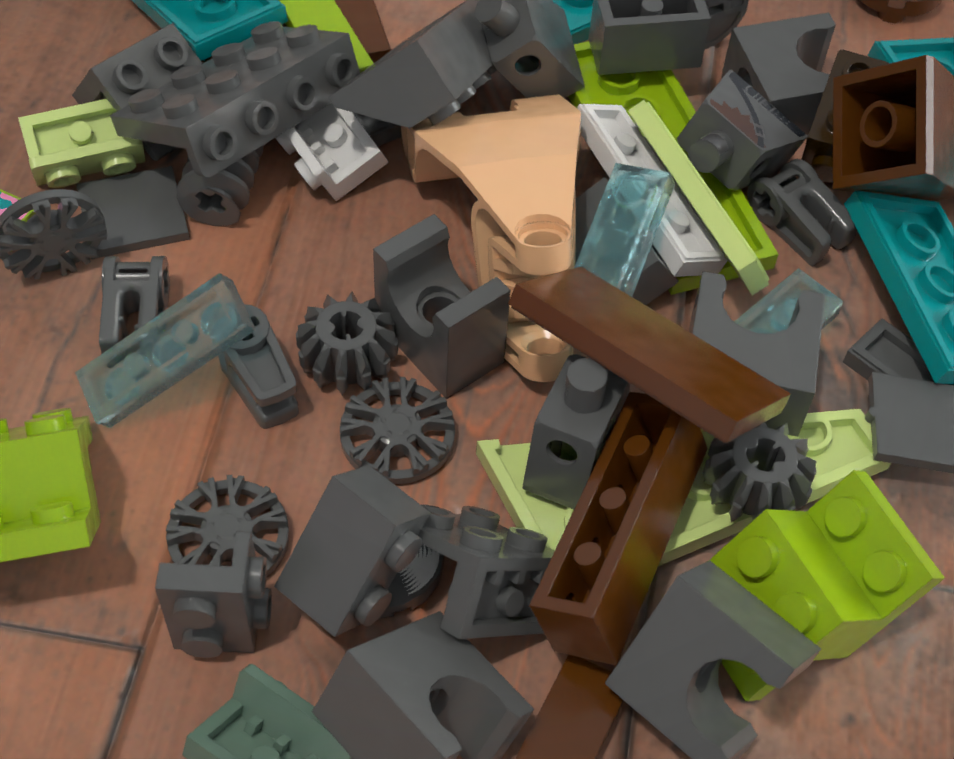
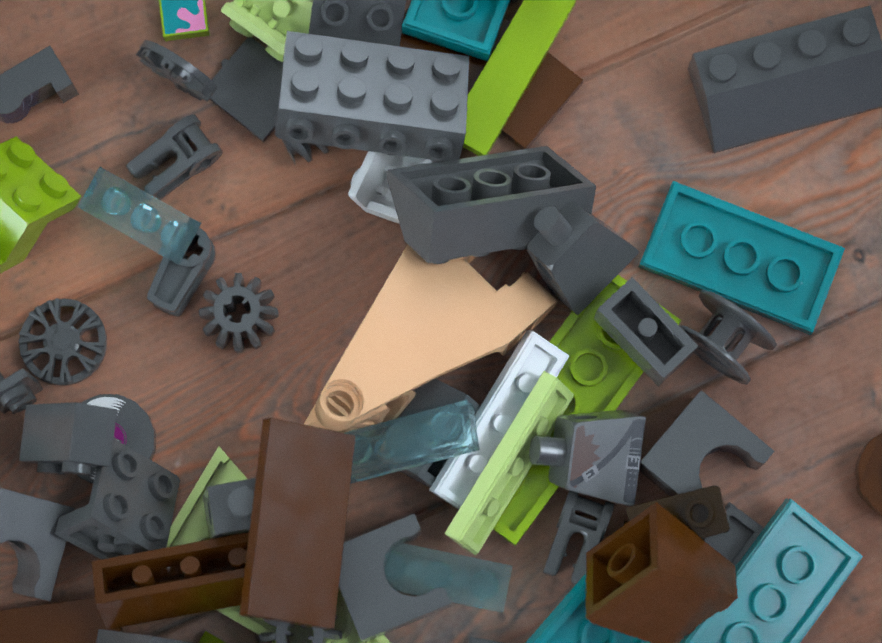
camera: 60 degrees right, 25 degrees up
(398, 429) = (203, 388): dark grey wheel -> none
(437, 320) = (294, 328): dark grey piece -> none

